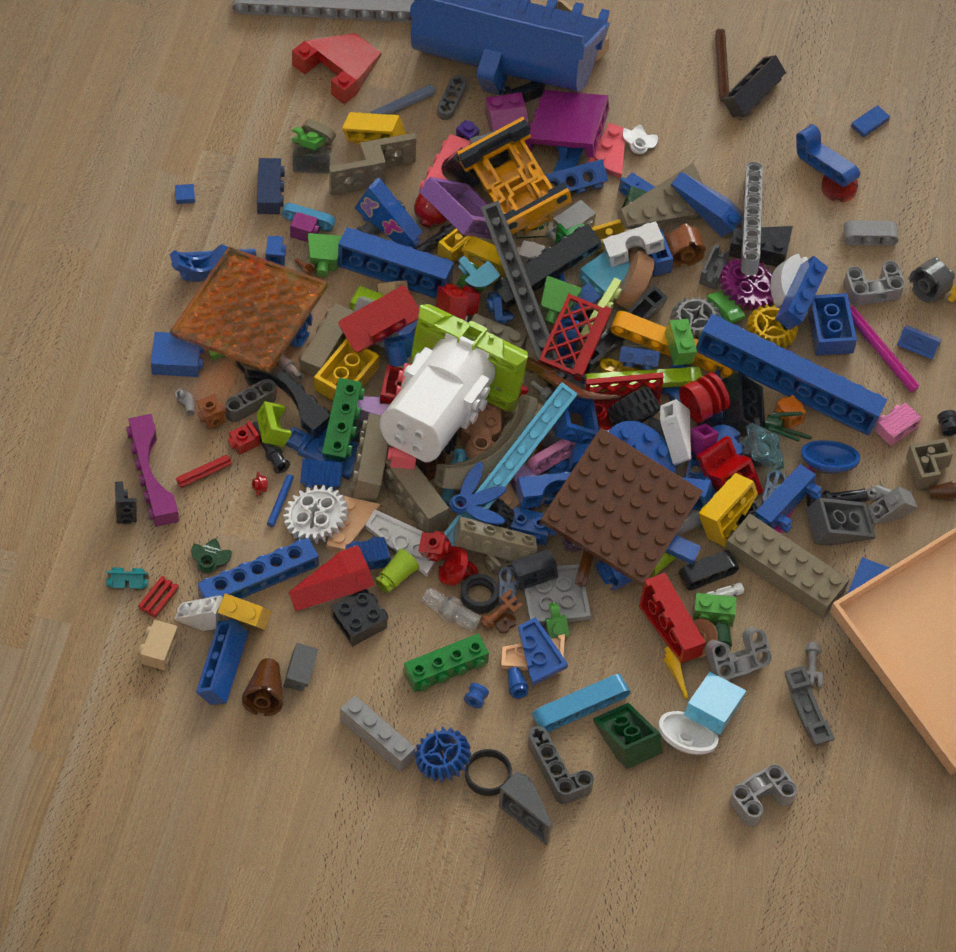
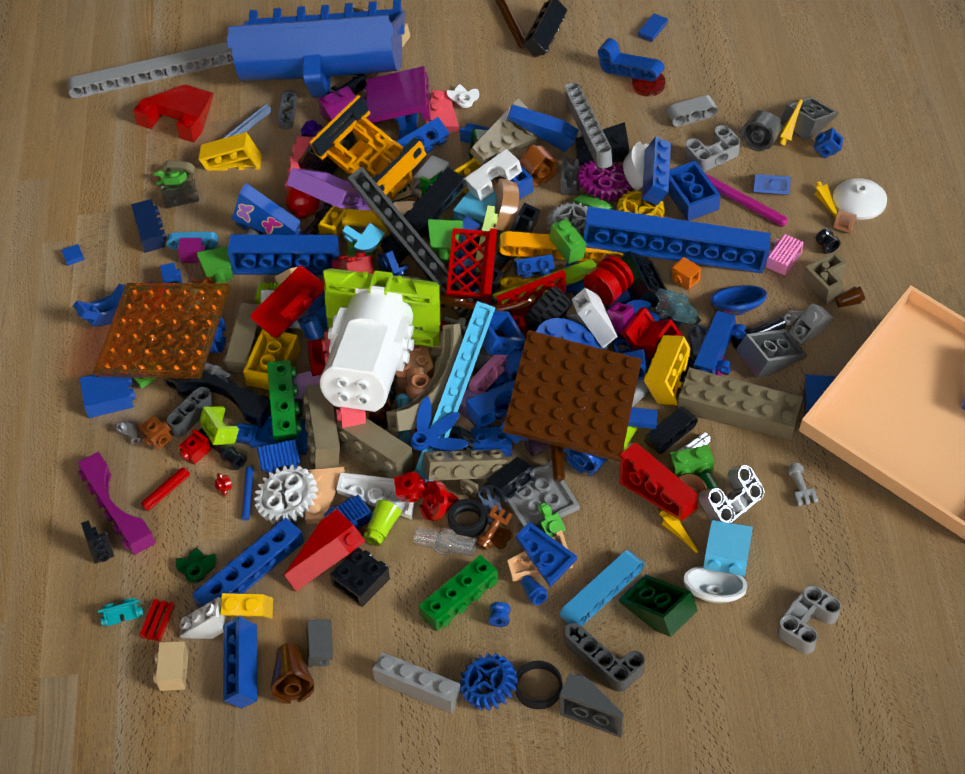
camera: 10 degrees left, 5 degrees down
(374, 159) = (235, 173): dark tan bracket -> none
(775, 424) = (679, 286): dark green plant -> none
(807, 707) = (813, 525): dark grey slope -> none

